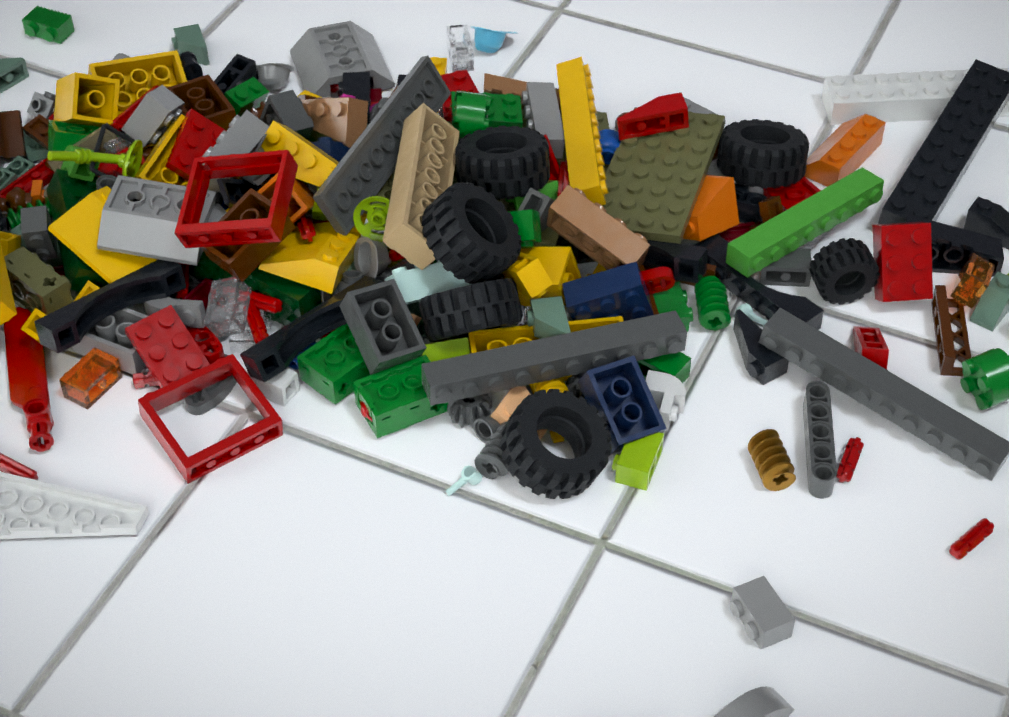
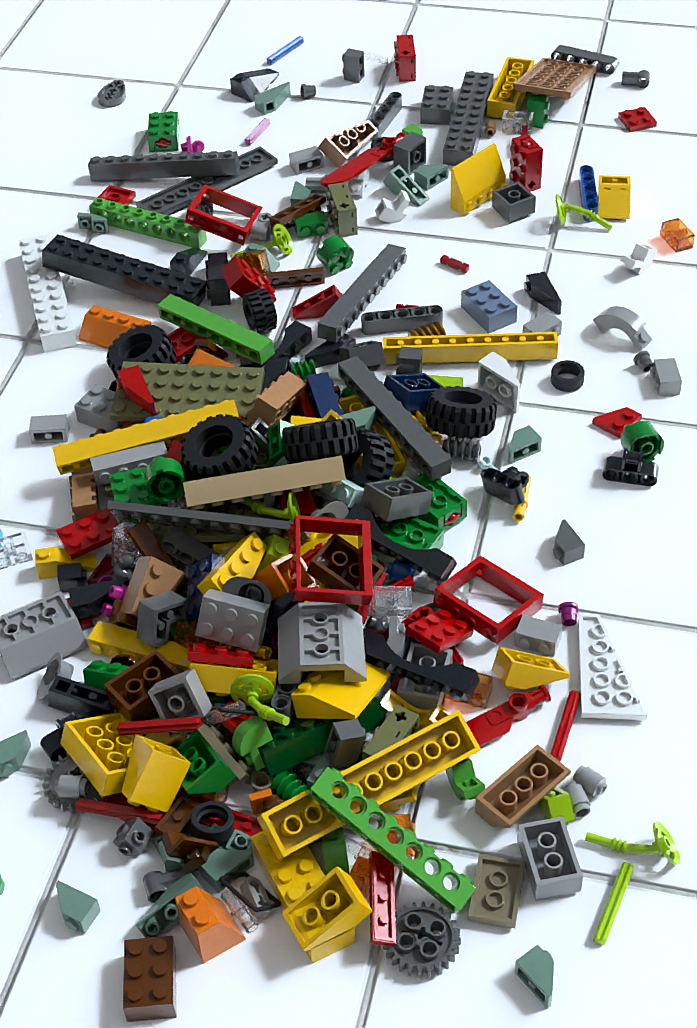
camera: 100 degrees left, 0 degrees up
(19, 140) = (215, 810): none -> black tyre
(78, 429) = (525, 669): none -> yellow slope
(134, 459) = (538, 635): none -> light grey brick
(156, 499) = (568, 613): none -> magenta piece
(277, 526) = (568, 545): none -> dark grey slope
(377, 497) = (519, 510): none -> yellow pin
(390, 642) = (630, 469): none -> black piece
(404, 473) = (505, 484): none -> black piece
(437, 663) = (643, 437): none -> green brick
(493, 523) = (524, 444): none -> sand green slope
(514, 666) = (616, 420): none -> red wing
(626, 515) = (499, 380): none -> white slope
(637, 601) = (565, 384): none -> black tyre
(661, 81) = (49, 429): none -> light grey brick
(688, 417) = (409, 360): none -> dark grey brick
(722, 508) = (475, 346): none -> yellow brick
(724, 366) = (369, 352): none -> dark grey brick
(834, 551) = (489, 306): none -> sand blue brick
(870, 639) = (542, 291): none -> black slope

